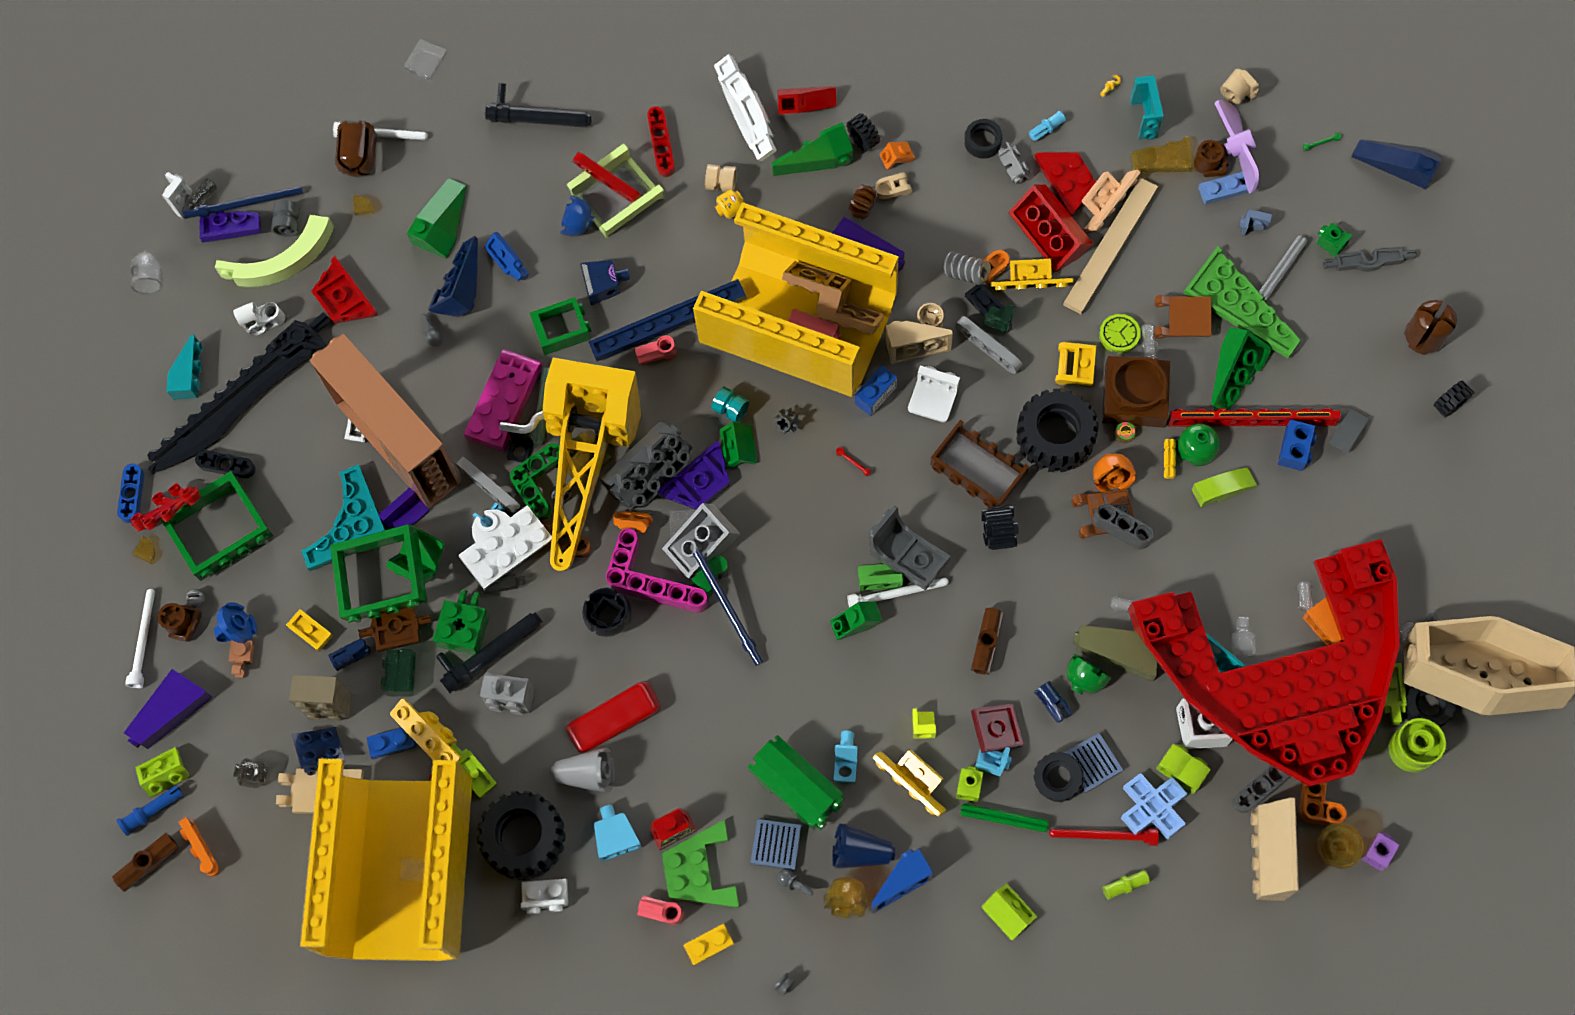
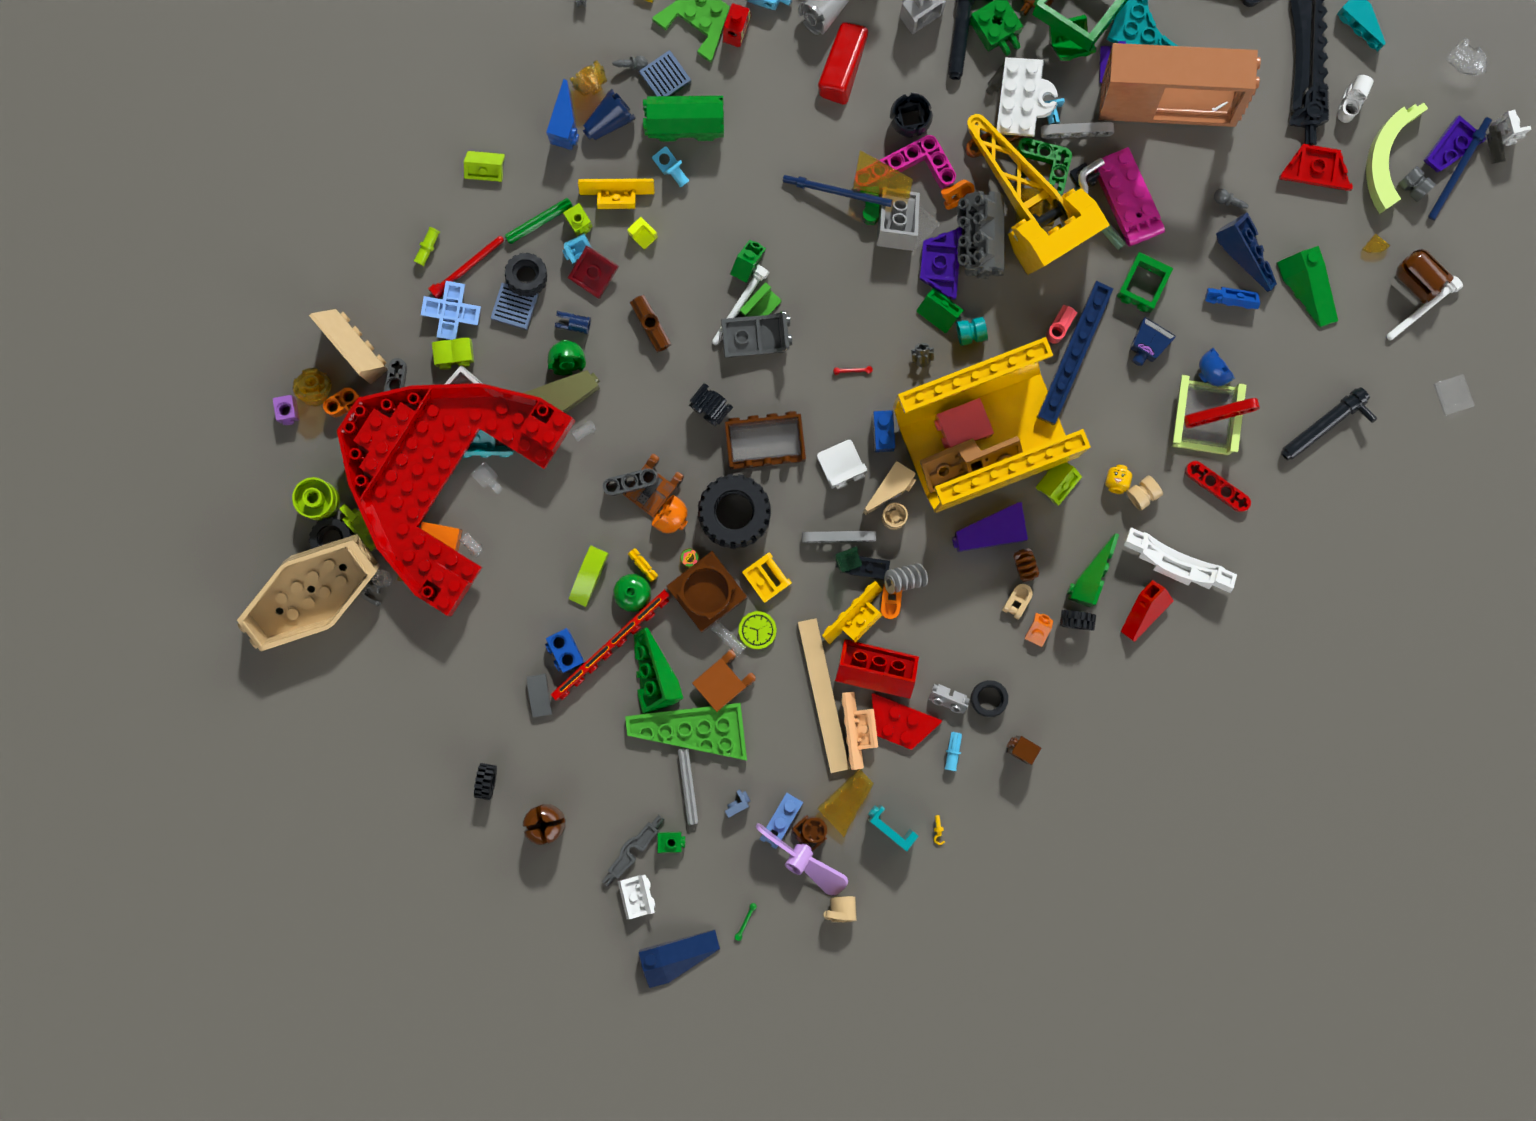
camera: 130 degrees right, 15 degrees up
(684, 582) = (880, 178): none -> clear yellow wing
(993, 79) = (1023, 749): none -> reddish brown brick
(1396, 222) = (636, 896): none -> white bracket

